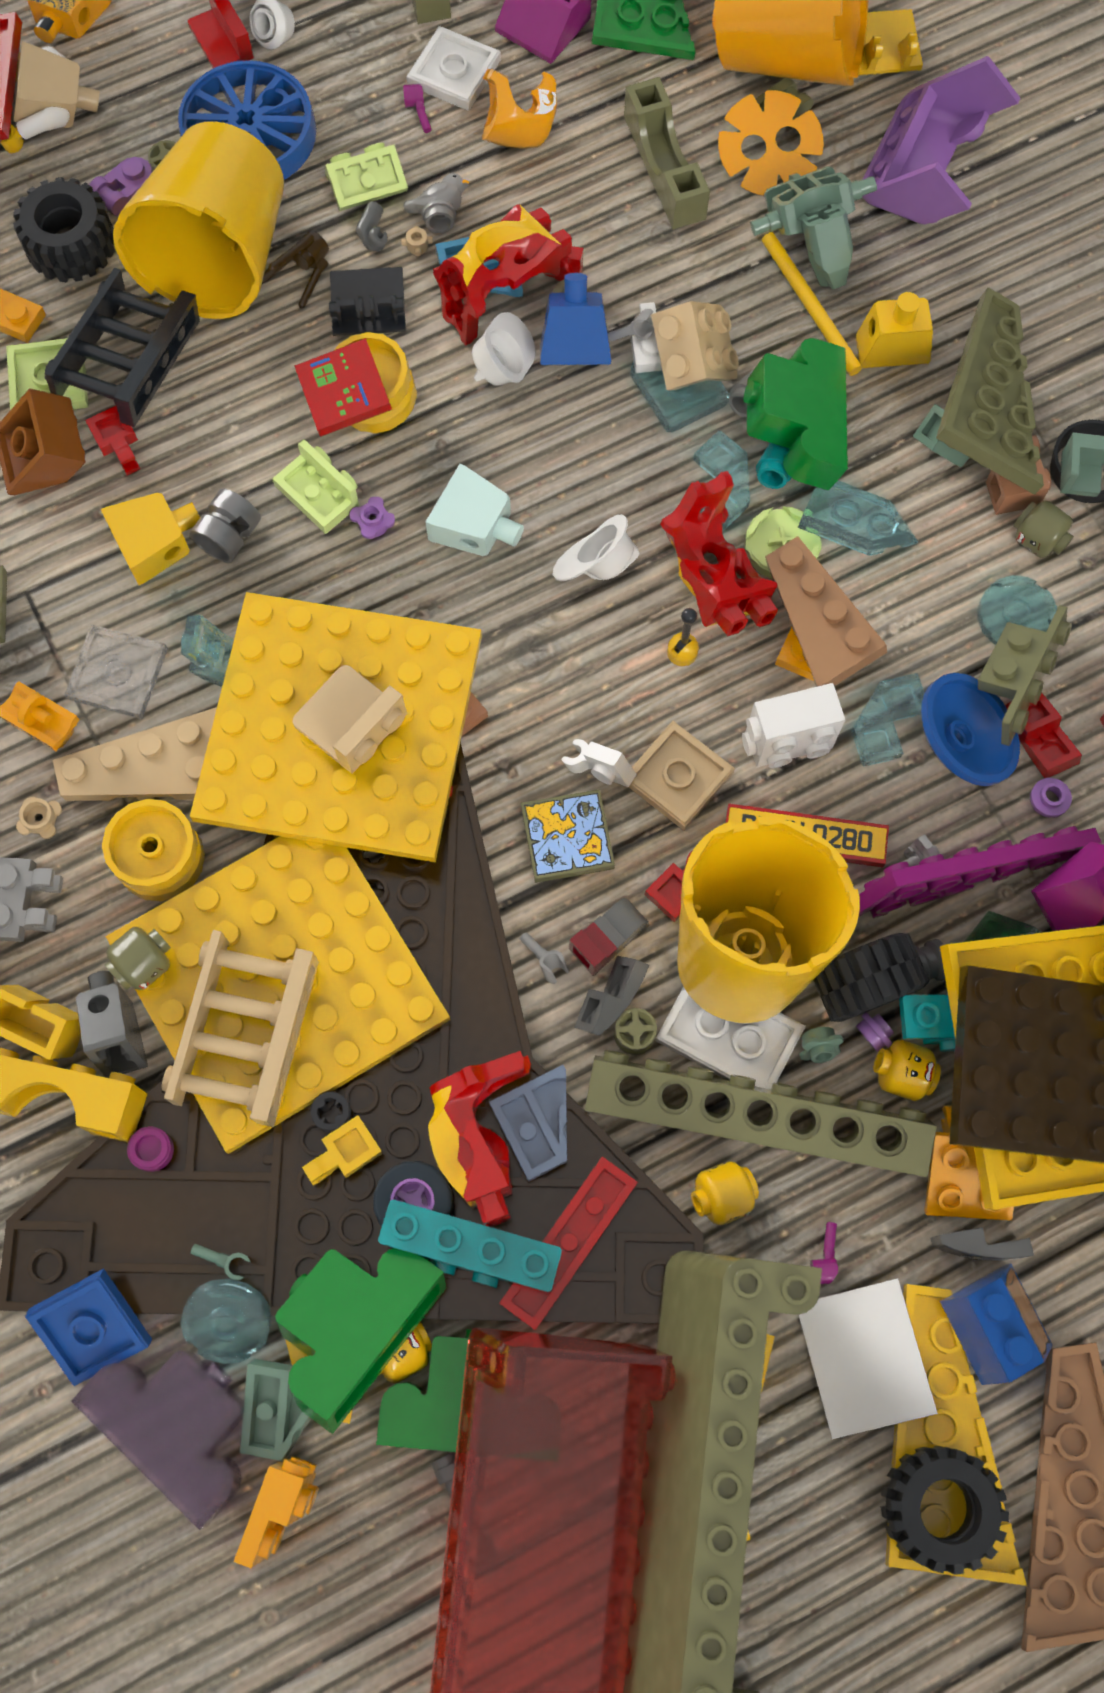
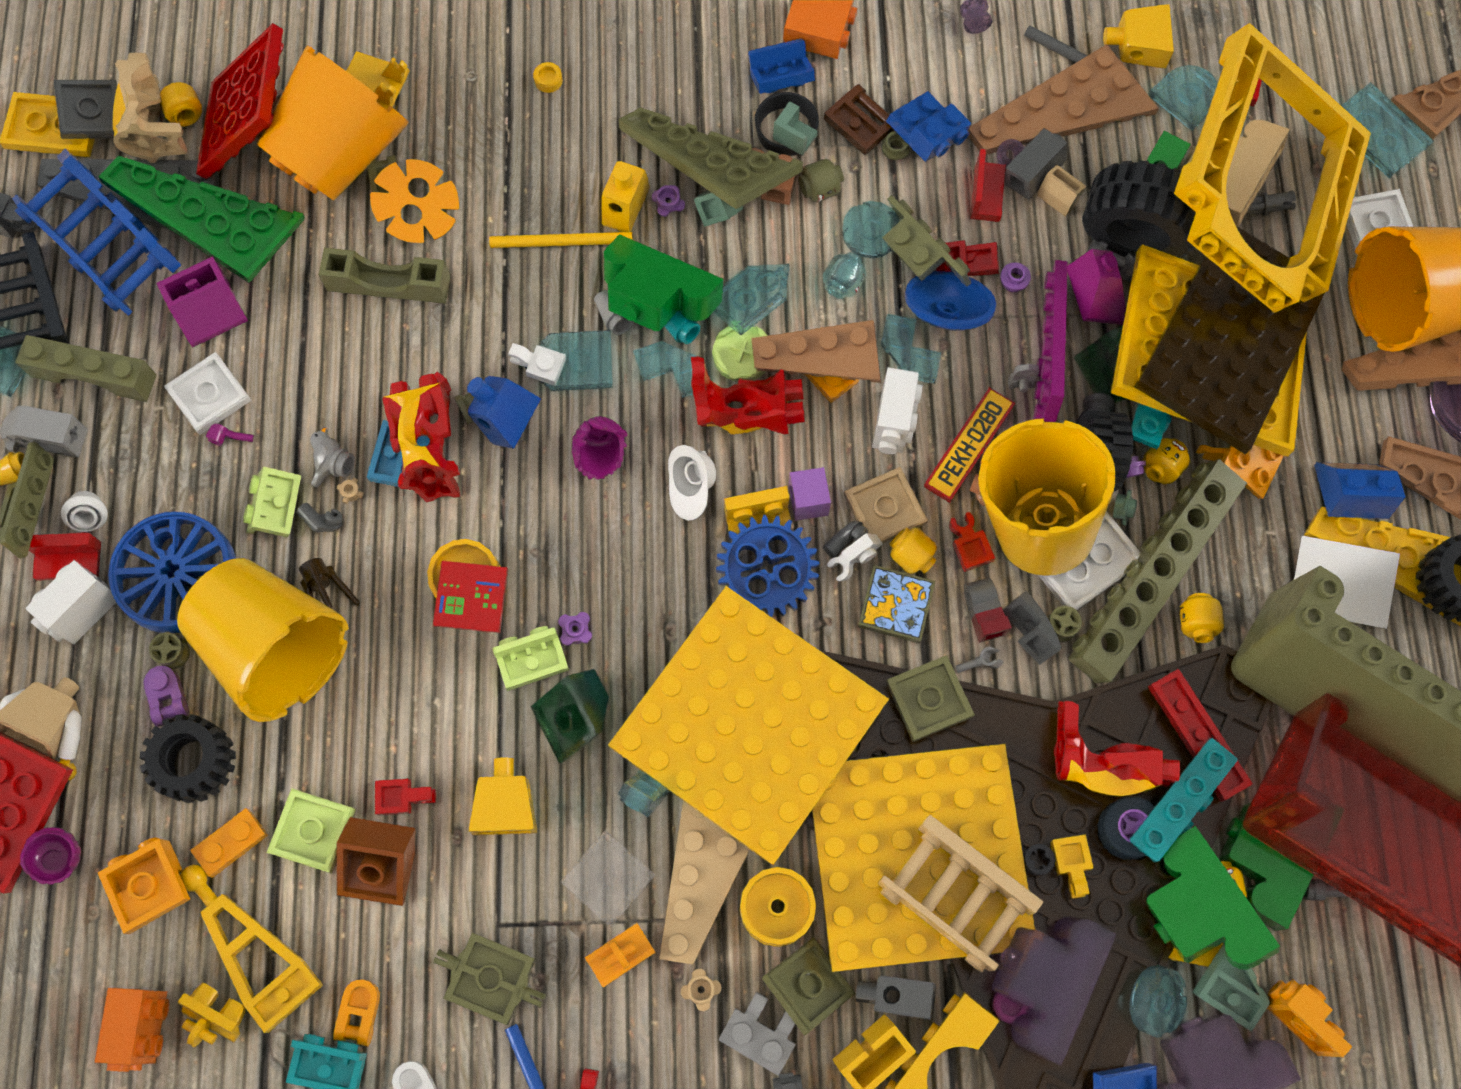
camera: 65 degrees left, 0 degrees up
(79, 919) = (808, 986): none -> olive tile
(138, 958) = (870, 949): olive head -> none
(145, 371) = (358, 747): black fence -> none
(167, 51) = (70, 603): none -> white brick
(189, 1178) = (1052, 982): none -> clear purple brick
(220, 1259) = (1116, 982): sand green hand -> none
(227, 522) = (527, 739): flat silver wheel -> none
(280, 552) = (572, 713): none -> clear green slope
(350, 717) = (760, 707): tan bracket -> none
(367, 301) = (383, 550): black hinge -> none
(463, 910) = (929, 698): none -> olive plate
(472, 515) = (613, 553): light aqua torso -> none
(504, 351) = (489, 470): white piece -> none
(510, 124) = (286, 374): light orange piece -> none
(536, 1122) = (1107, 719): sand blue wing -> none
(564, 652) = (757, 539): none -> blue gear
(582, 441) = (598, 447): none -> magenta hair
(596, 637) = (767, 502): none -> yellow bracket
(628, 746) = (842, 538): none -> dark grey arm
(637, 823) = (913, 550): none -> yellow head
(638, 327) = (531, 361): light grey hand -> none
(645, 680) = (809, 493): none -> medium lavender piece
(684, 641) = (791, 453): yellow hinge -> none
(695, 344) = (565, 333): tan bracket -> none
(819, 209) = (497, 196): sand green piece -> none
(829, 1263) = (1275, 577): magenta hand -> none
(922, 376) = (668, 192): none -> medium lavender plate
(924, 136) = (473, 106): medium lavender windscreen -> none
(938, 605) = (844, 275): none -> clear light blue head
(973, 1245) = (1299, 475): dark grey slope -> none
(999, 201) = (547, 77): none -> yellow tile

